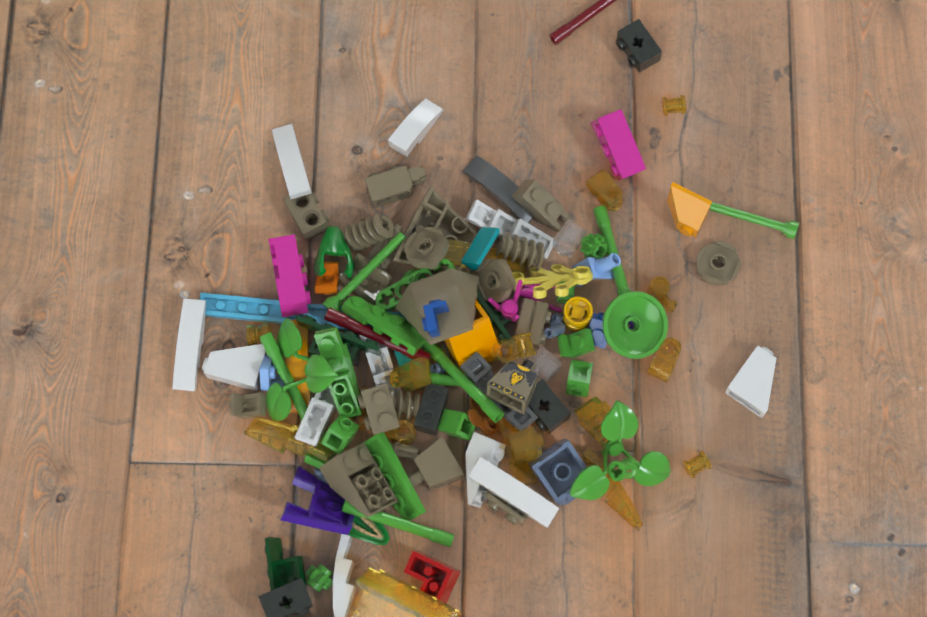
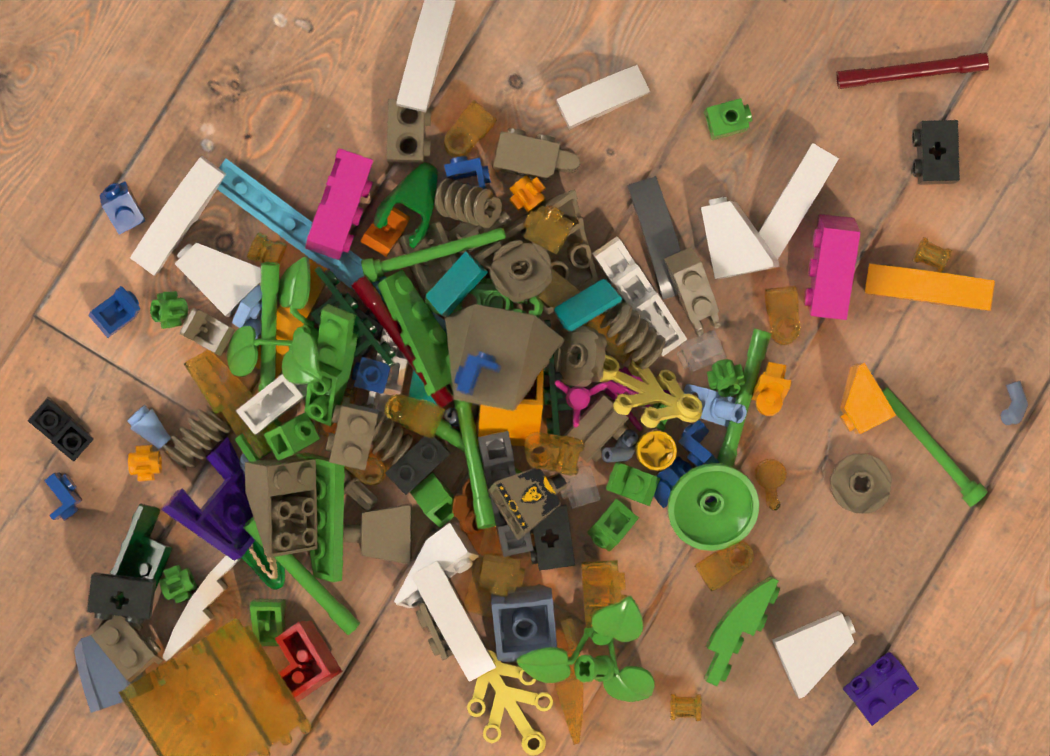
camera: 25 degrees right, 15 degrees up
(150, 360) = (121, 207): none -> bracket
(181, 426) = (115, 312): none -> blue bracket
(186, 523) = (60, 429): none -> black slope
(209, 559) = (63, 488): none -> blue bracket
(215, 405) = (169, 309): none -> bright green gear
(243, 487) = (149, 427): none -> light blue cone
(253, 511) = (145, 463): none -> light orange gear
(278, 476) = (197, 438): none -> dark tan piece
(344, 190) = (472, 126): none -> clear yellow piece
(357, 213) = (463, 168): none -> blue bracket
(369, 370) = (371, 375): none -> blue bracket
(391, 281) = (456, 284): none -> teal slope
(391, 562) = (268, 619): none -> bright green slope
(403, 207) = (527, 193): none -> light orange gear
(428, 214) = (548, 228): none -> clear yellow brick
(500, 97) = (728, 118): none -> bright green brick
(548, 163) = (734, 241): none -> white slope
(571, 123) = (797, 198): none -> white slope
(578, 527) = (506, 698): none -> light yellow plant
(598, 296) = (691, 439): none -> blue bracket
(626, 234) = (771, 389): none -> light orange hips
(684, 123) = (930, 287): none -> light orange slope
(699, 386) = (745, 616): none -> bright green slope
(783, 163) = (1018, 404): none -> sand blue arm
(812, 380) = (881, 688): none -> dark purple bracket

